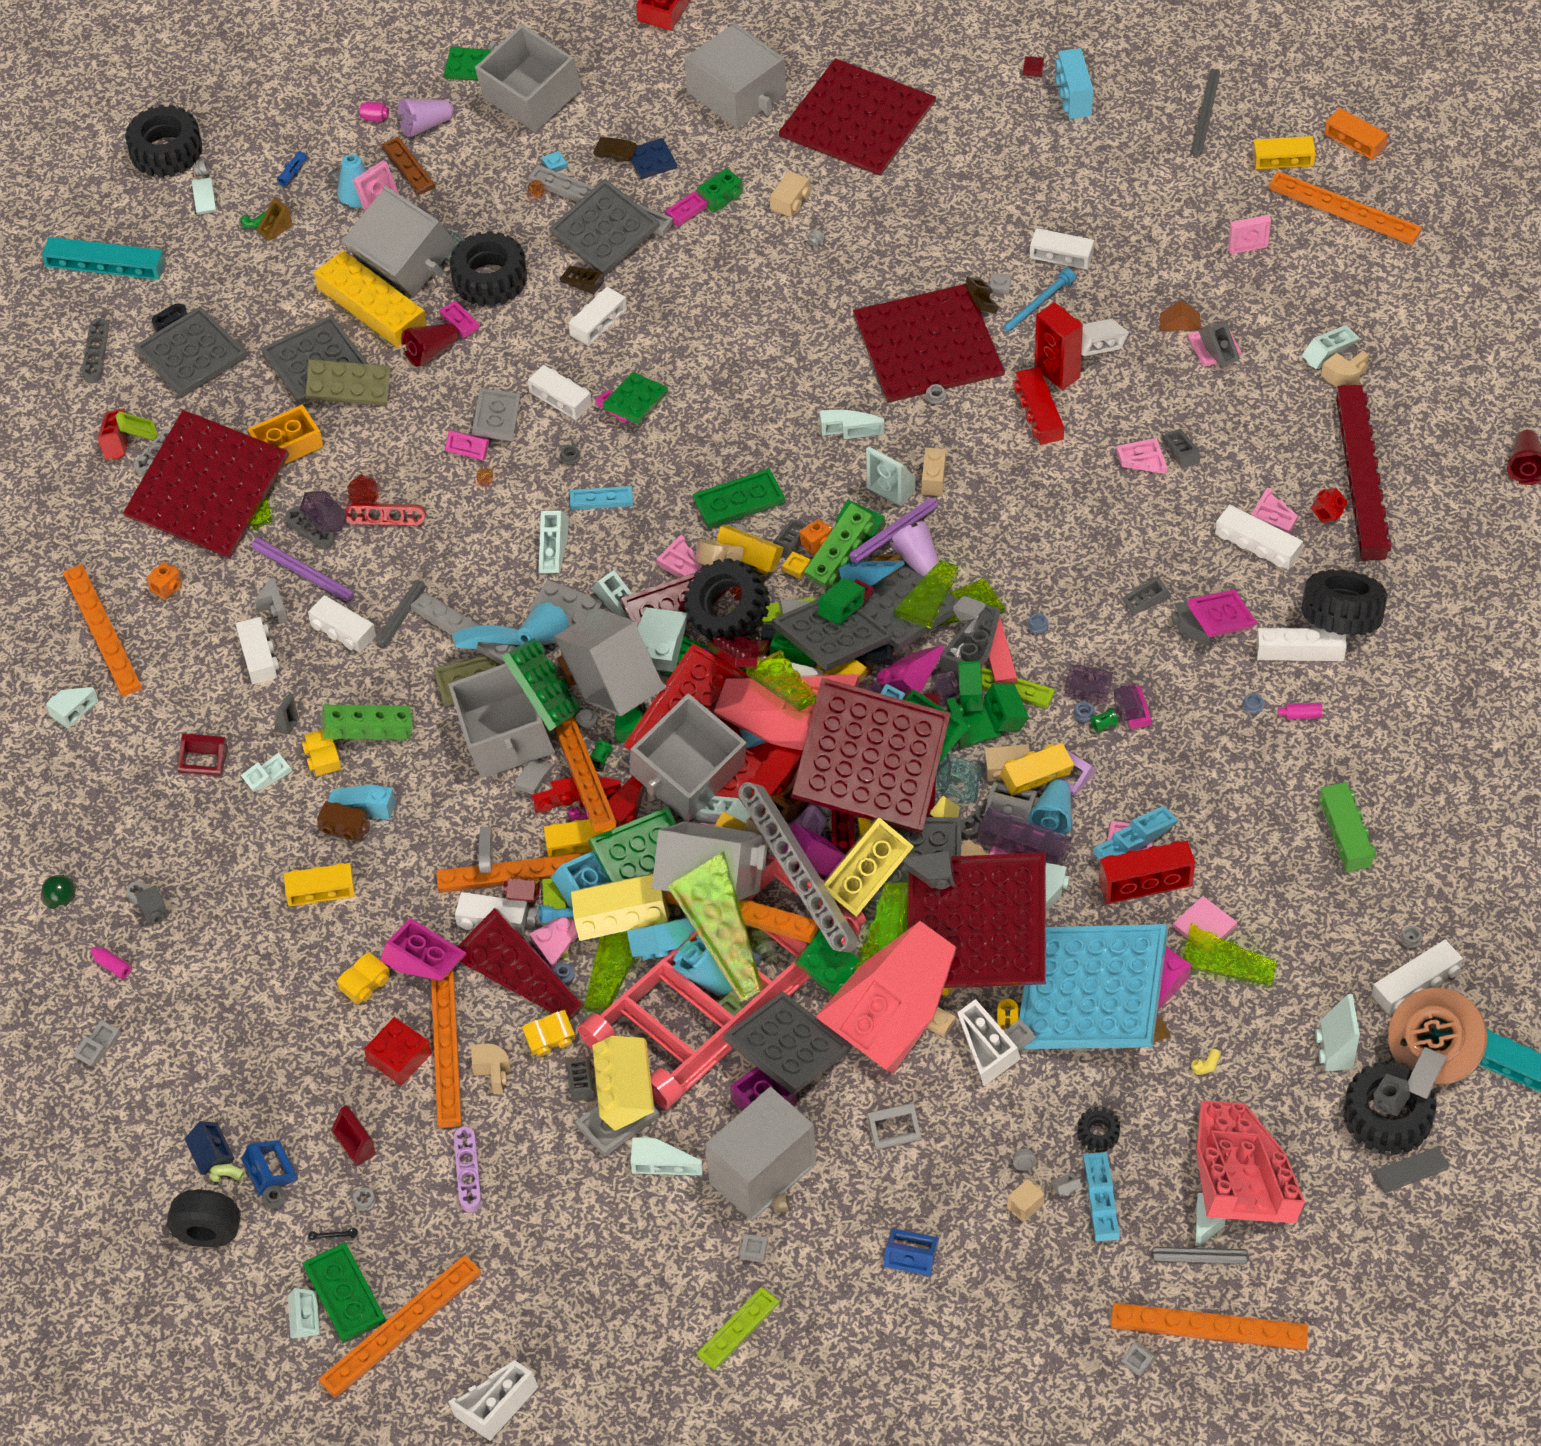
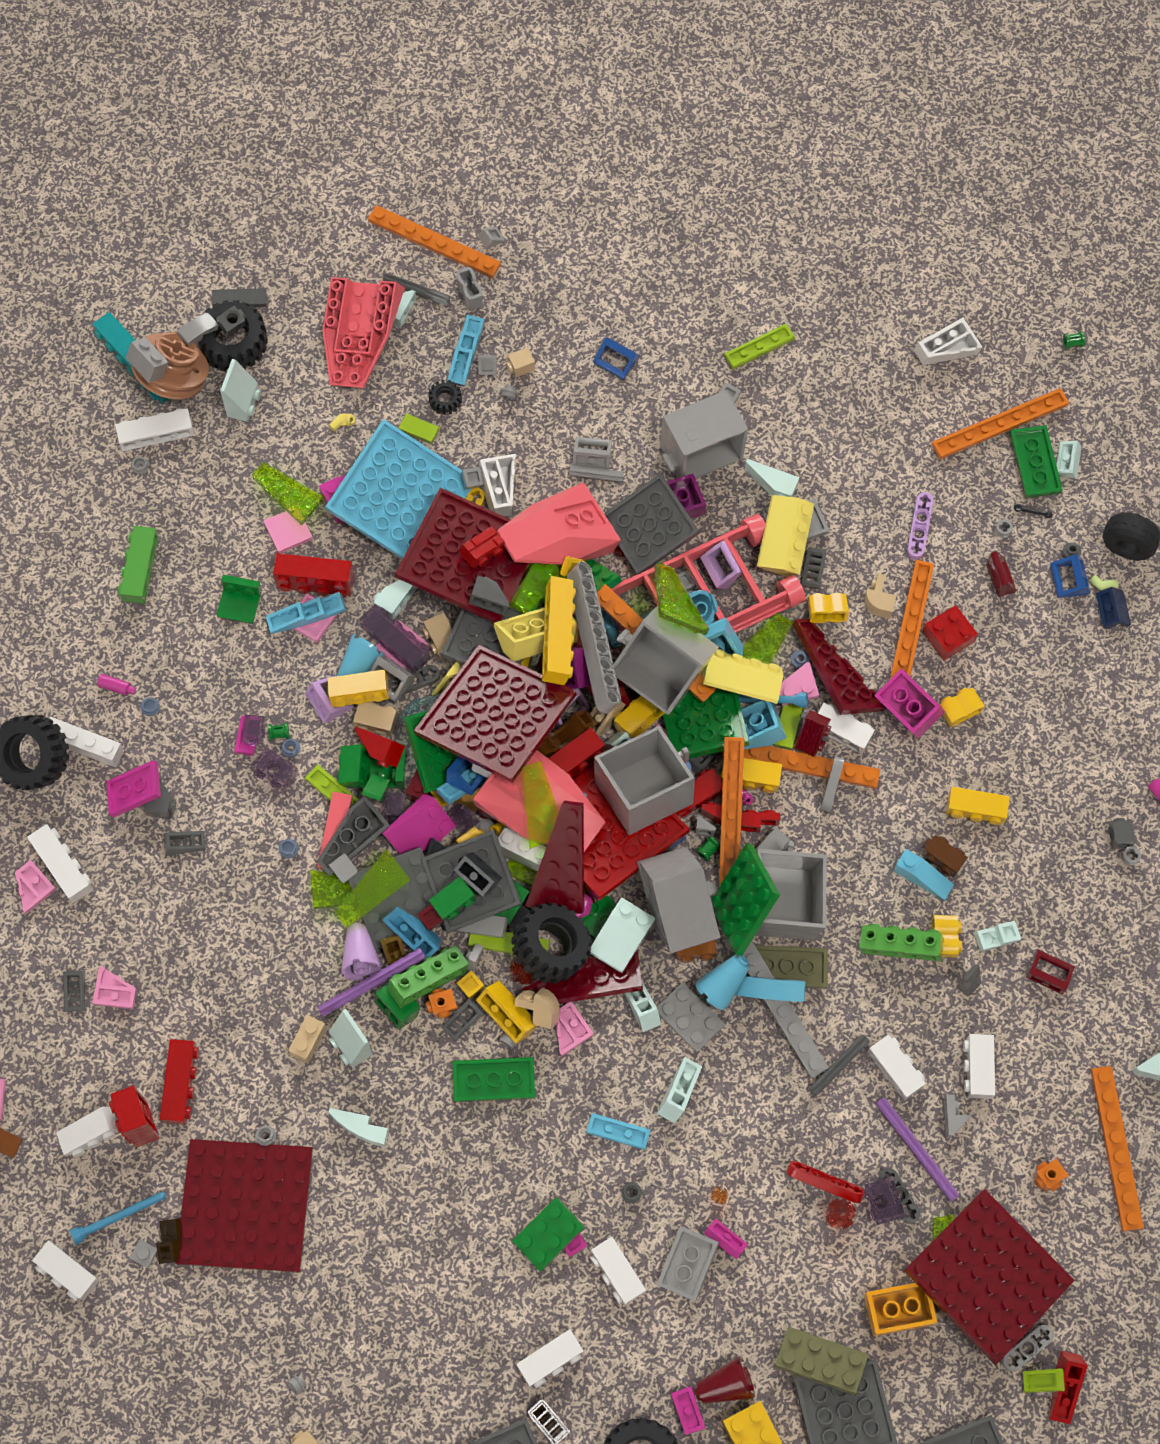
camera: 165 degrees left, 15 degrees up
(611, 770) = (704, 827): none -> light grey slope
(687, 1029) = (714, 569): none -> lavender tile
(803, 584) = (473, 956): none -> light grey plate
(824, 618) = (477, 874): none -> black brick
(838, 851) = (558, 630): none -> yellow brick
(856, 957) = (568, 564): none -> yellow plate
(878, 1102) = (596, 473): none -> light grey axle
(963, 921) = (482, 548): none -> red brick
(987, 724) = (381, 748): none -> red slope
(1112, 1086) = (419, 428): none -> lime tile
(1127, 1263) = (469, 288): none -> light grey brick
(1217, 831) = (239, 599): none -> green bracket
(1456, 995) = (147, 360): none -> light grey brick

